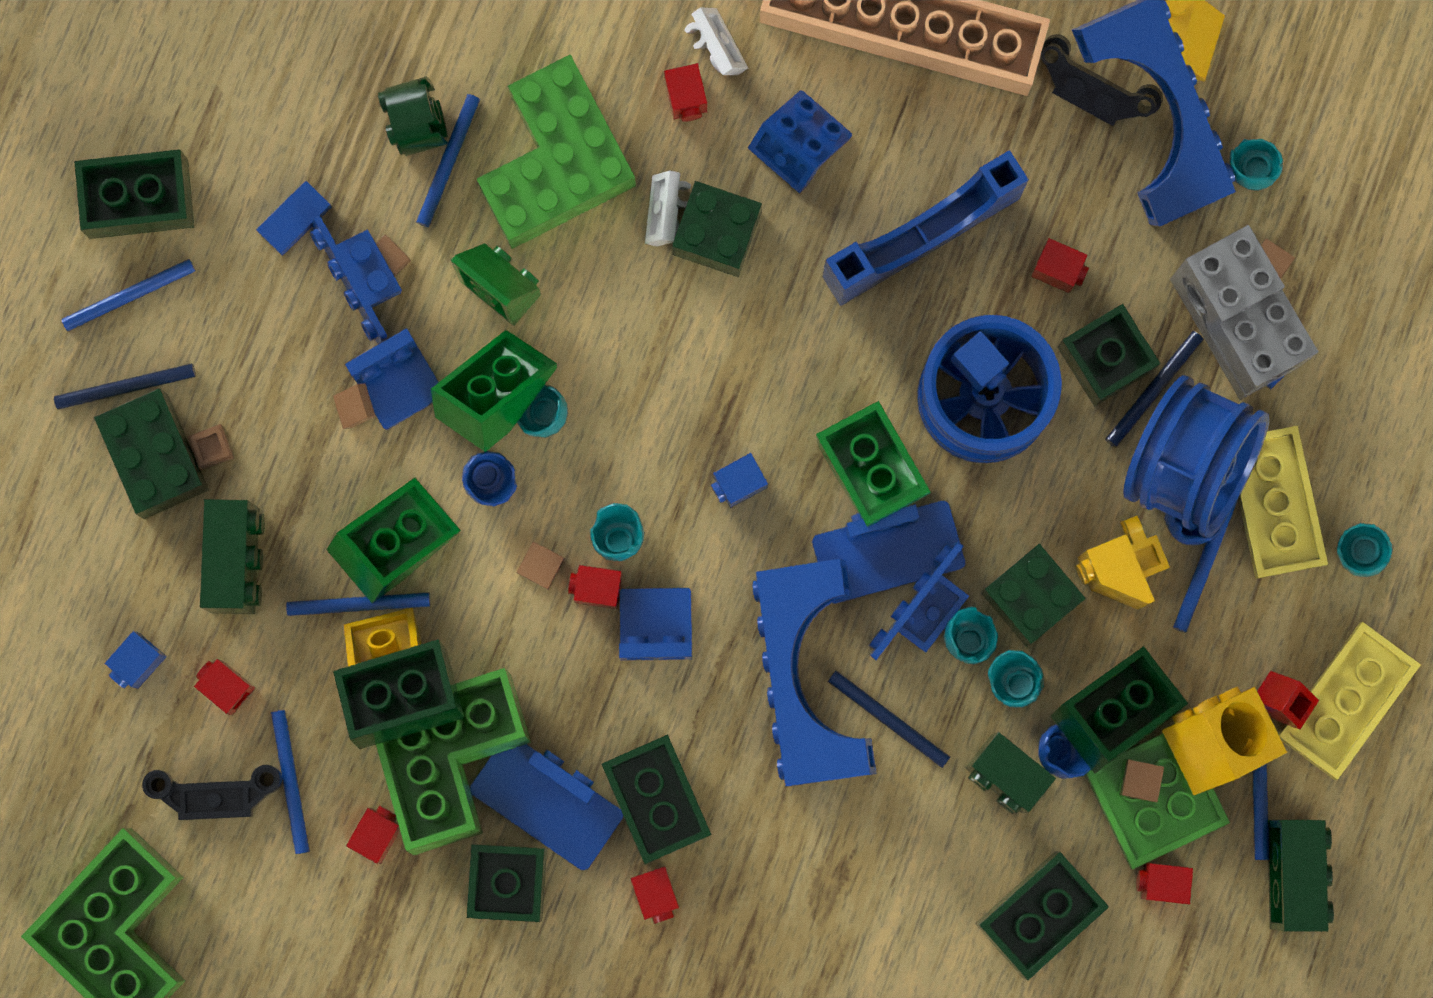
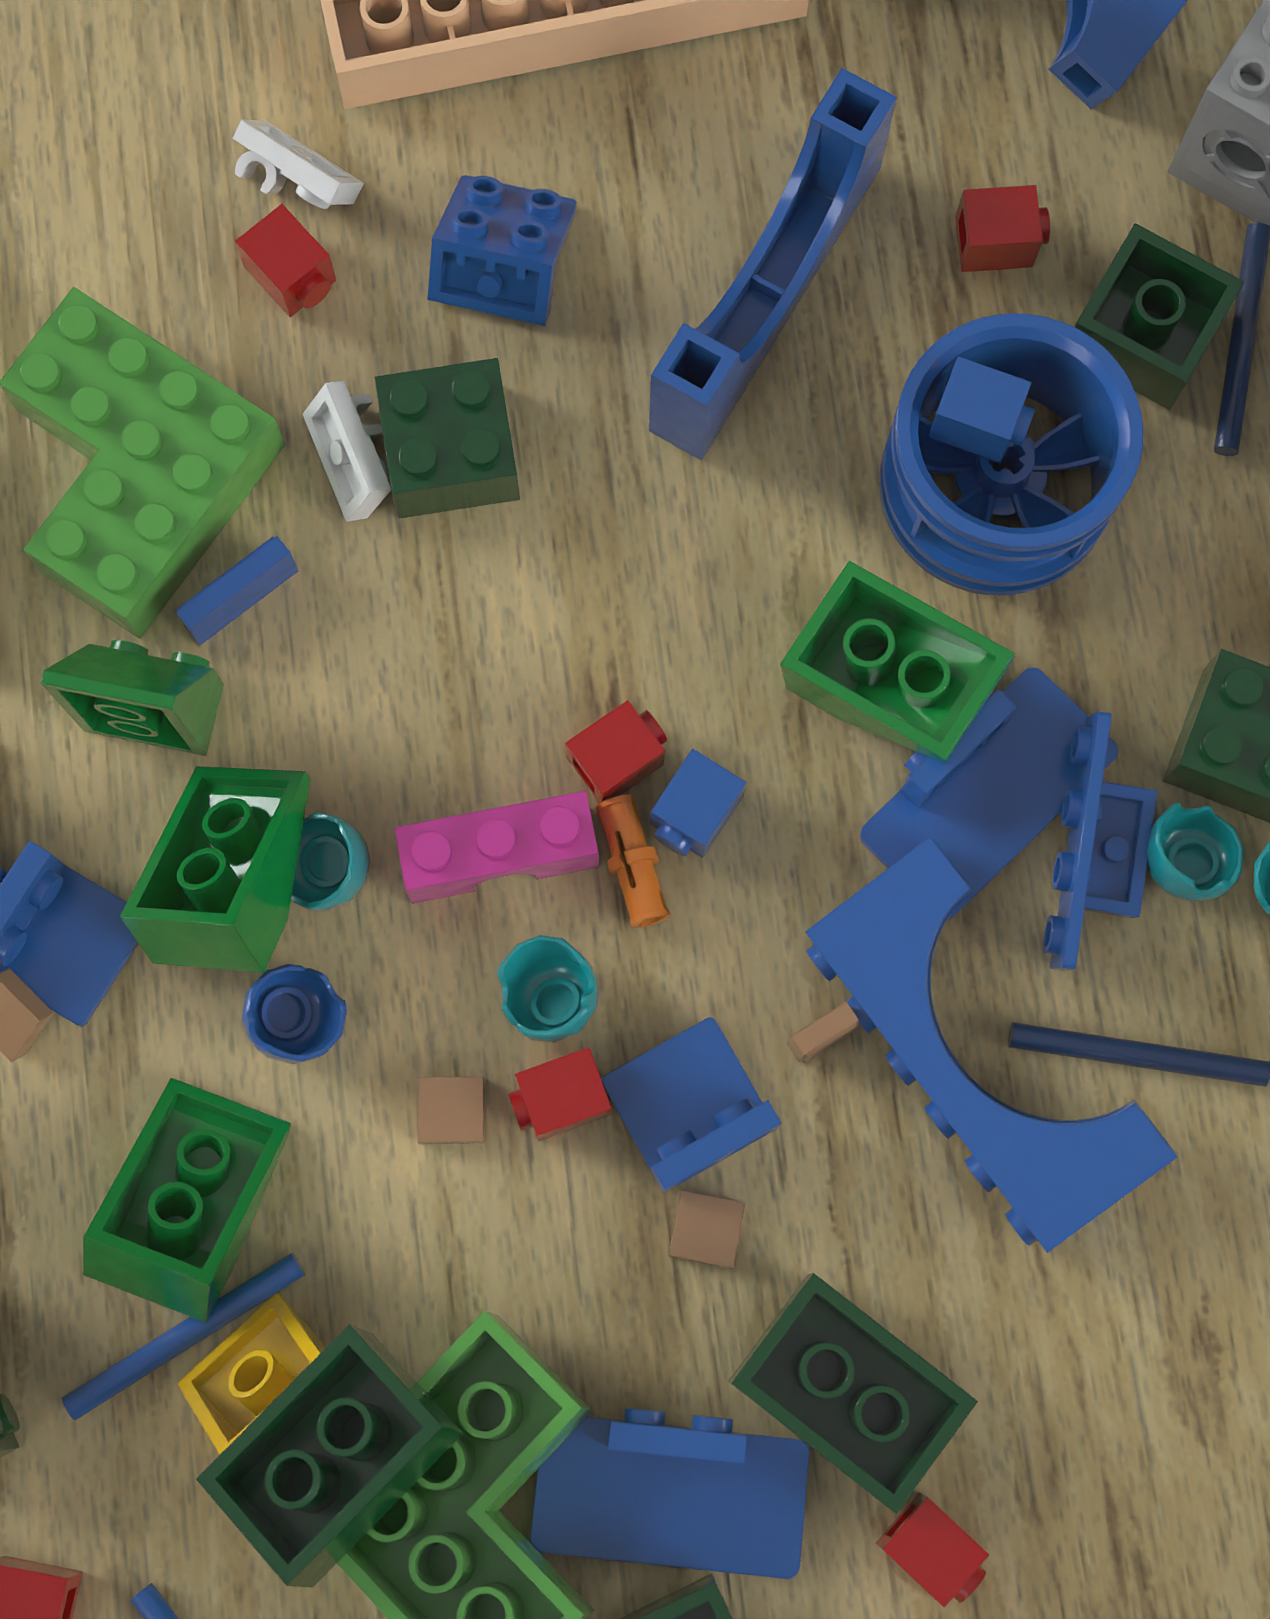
camera: 30 degrees left, 5 degrees down
(571, 251) = (237, 590): none -> blue tile
(630, 448) = (524, 838): none -> dark pink arch
(632, 688) = (706, 1229): none -> medium nougat tile
(693, 491) = (632, 861): none -> orange pin
(715, 433) = (617, 751): none -> red brick
(739, 625) = (823, 1033): none -> medium nougat tile

